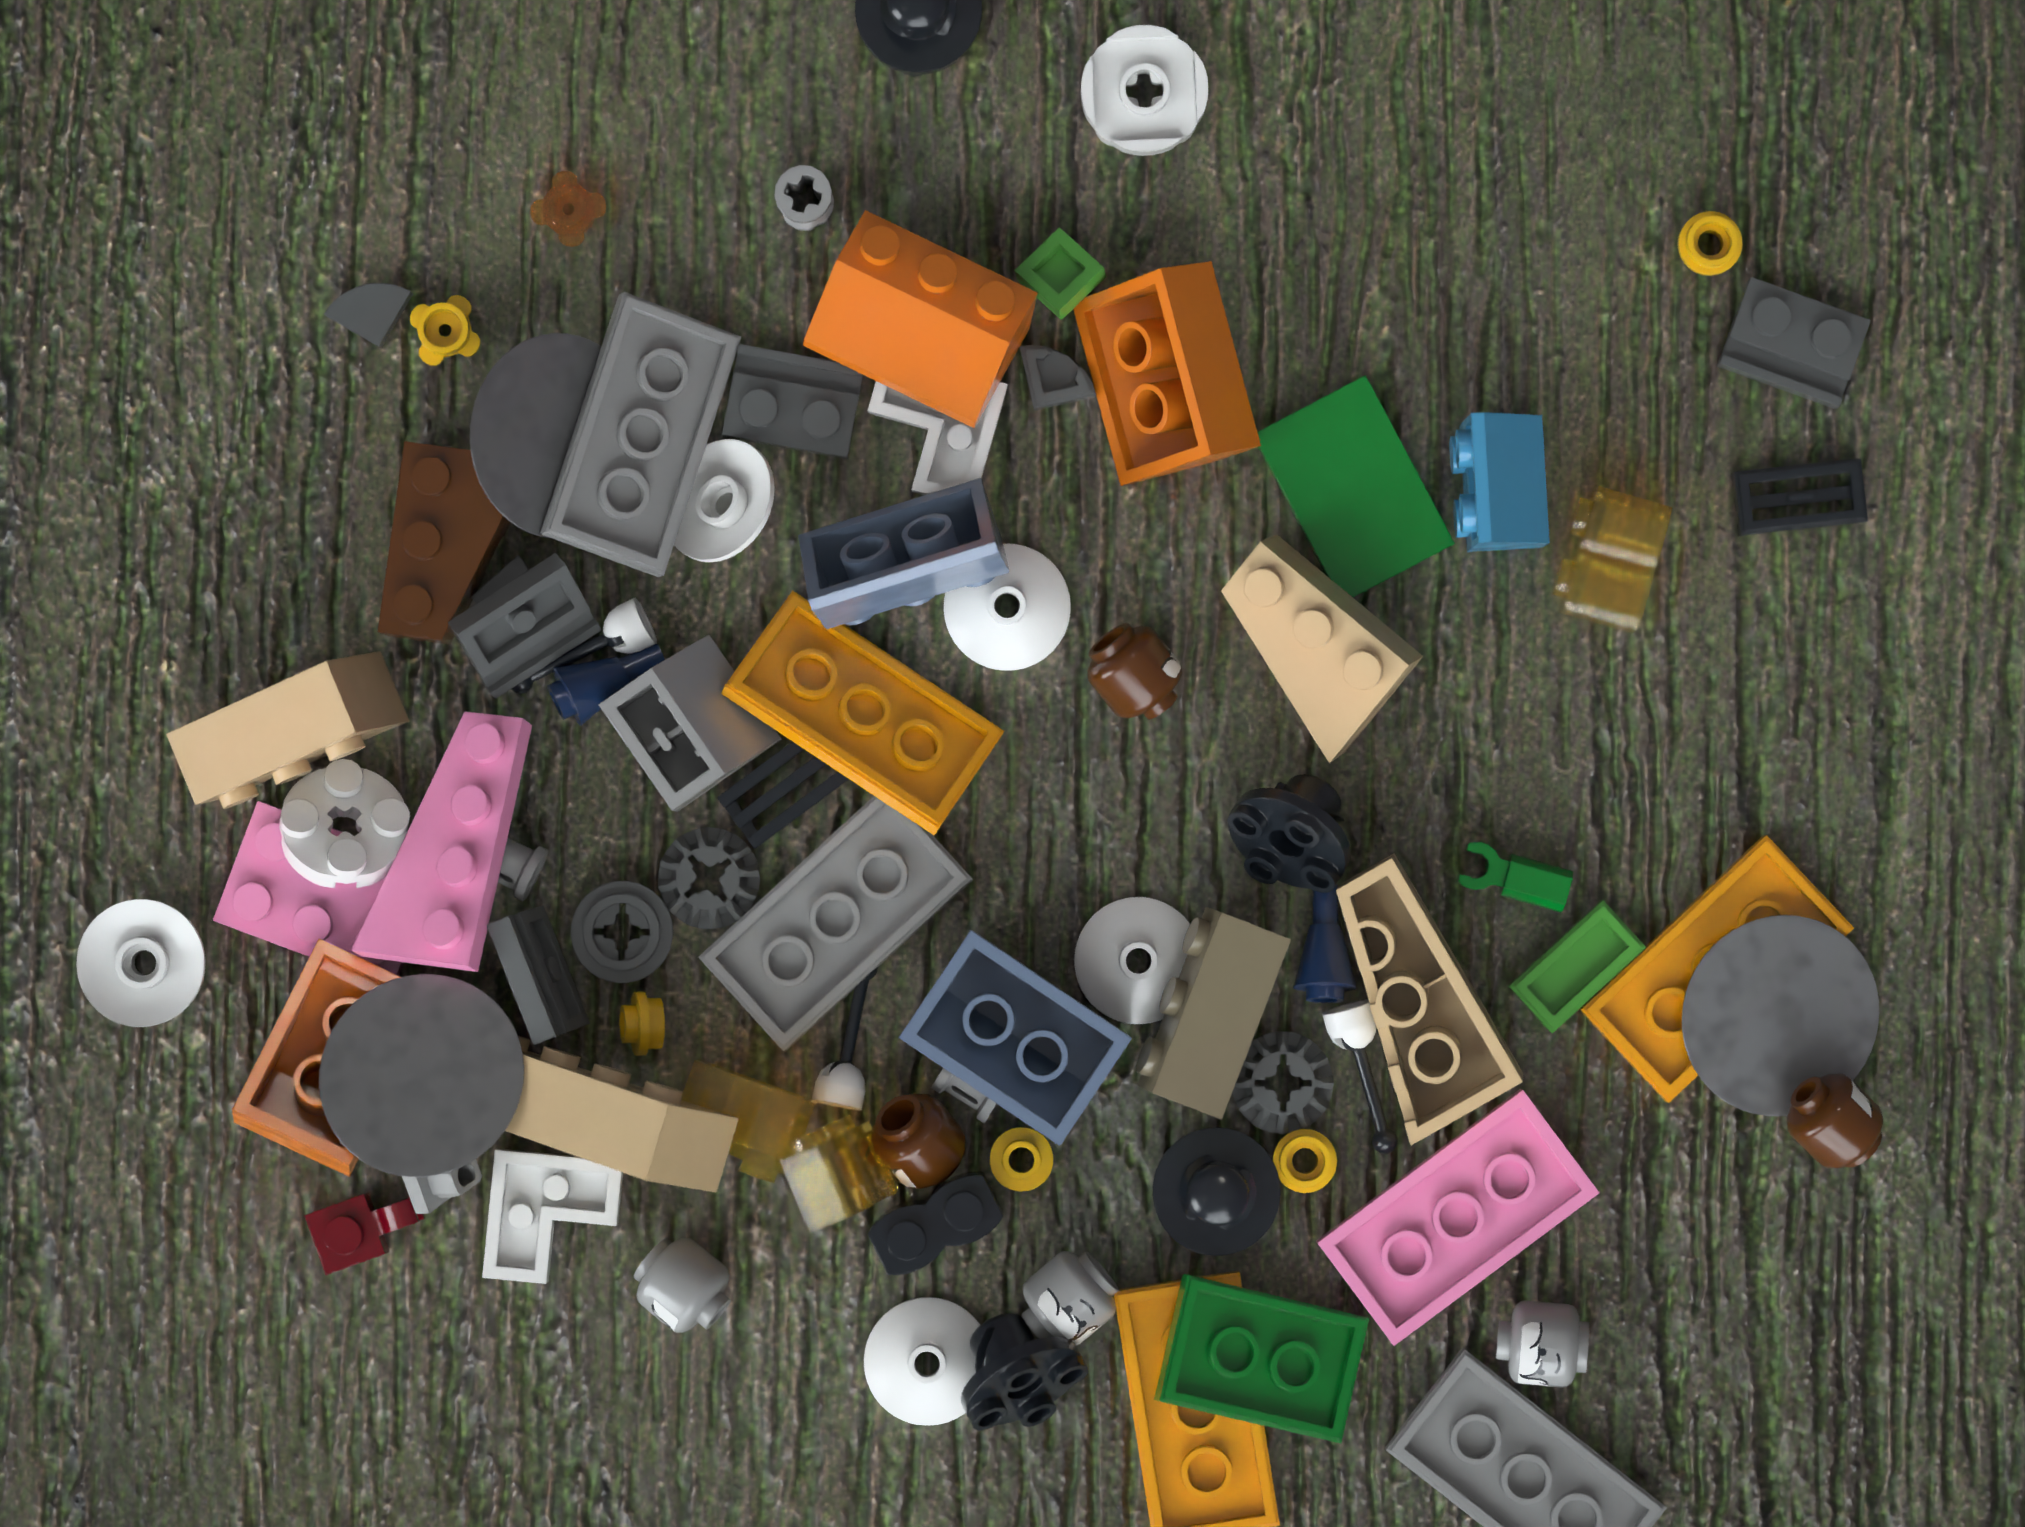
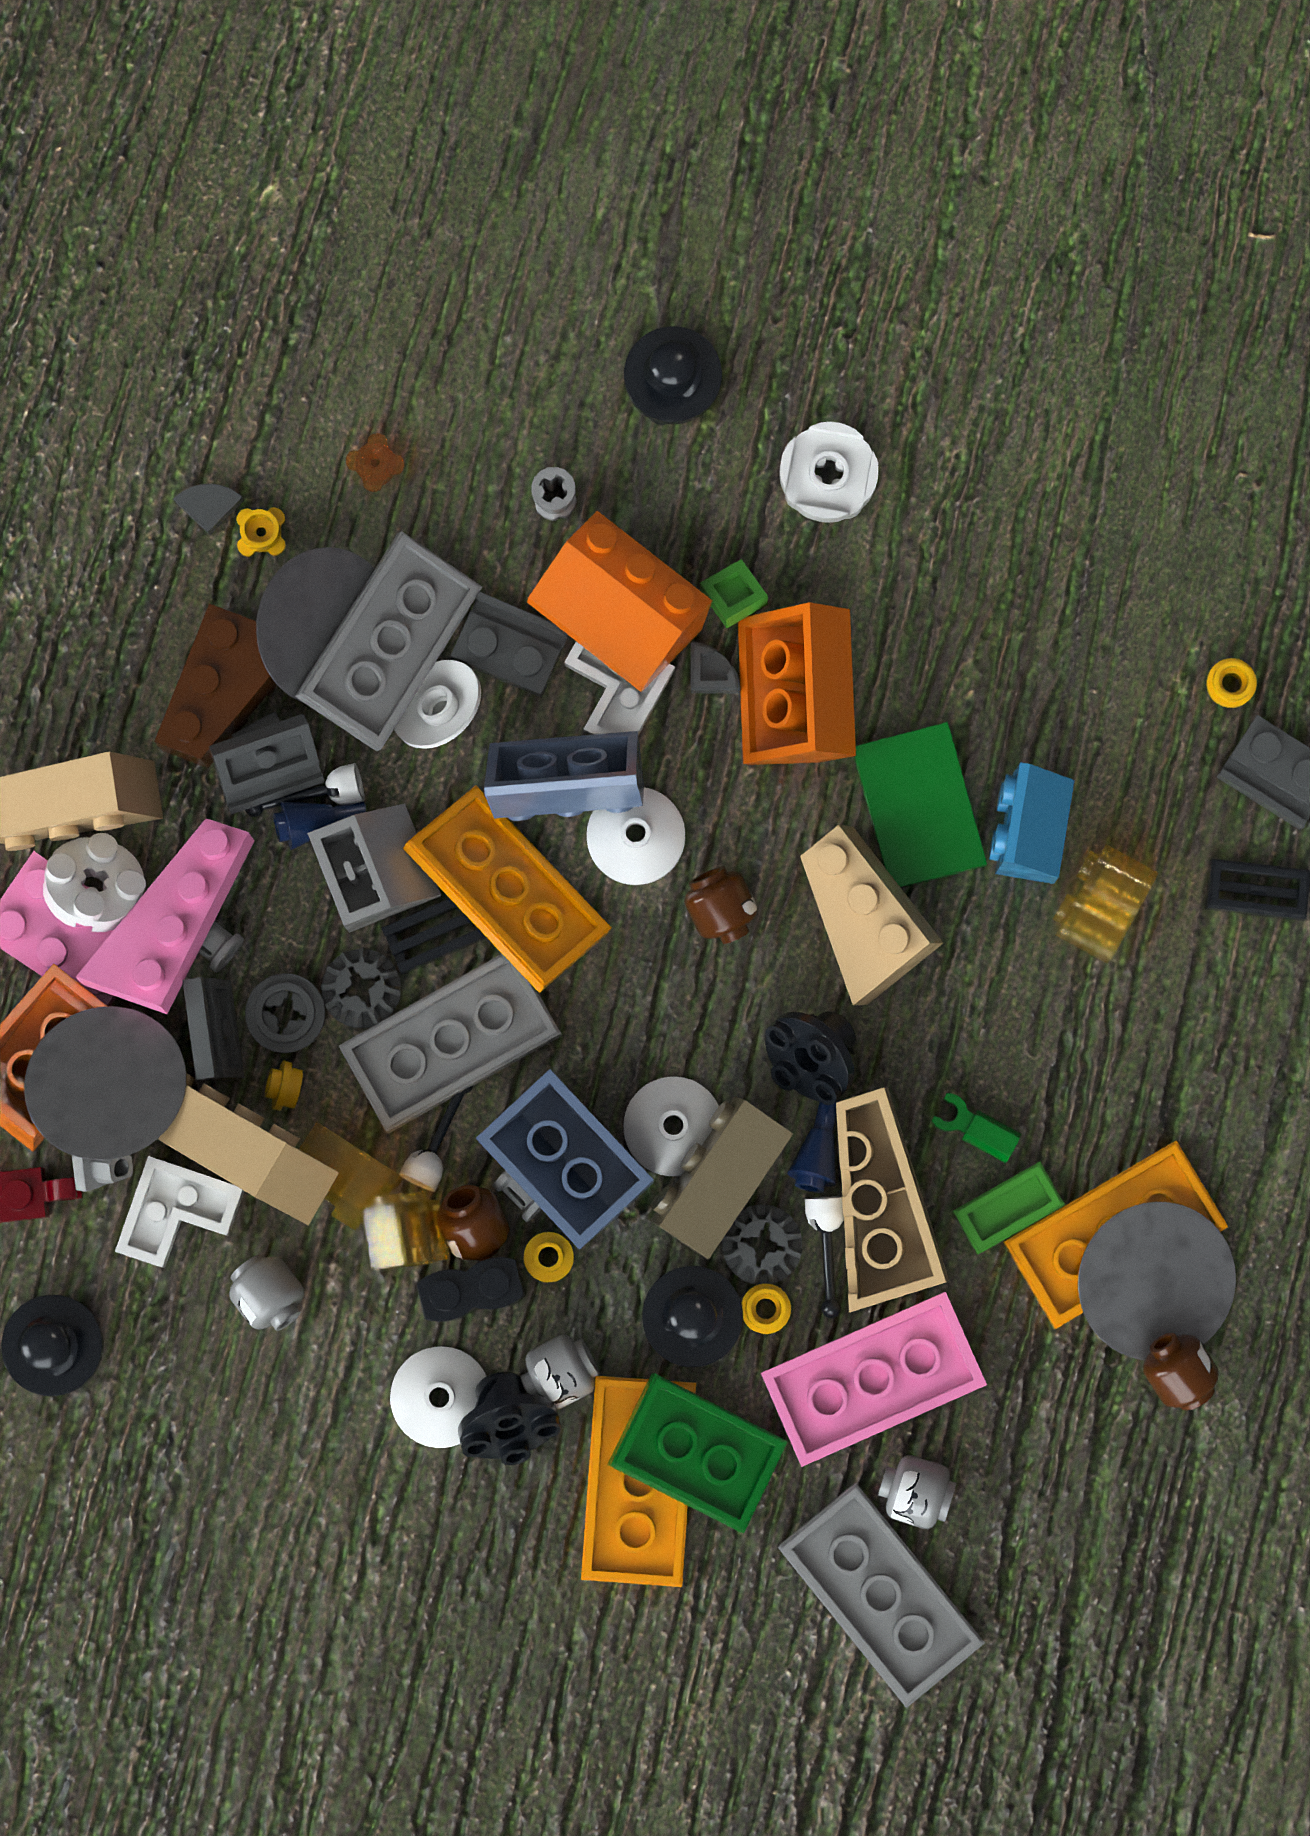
camera: 10 degrees right, 5 degrees down
(432, 1409) = (52, 1345): none -> black plate

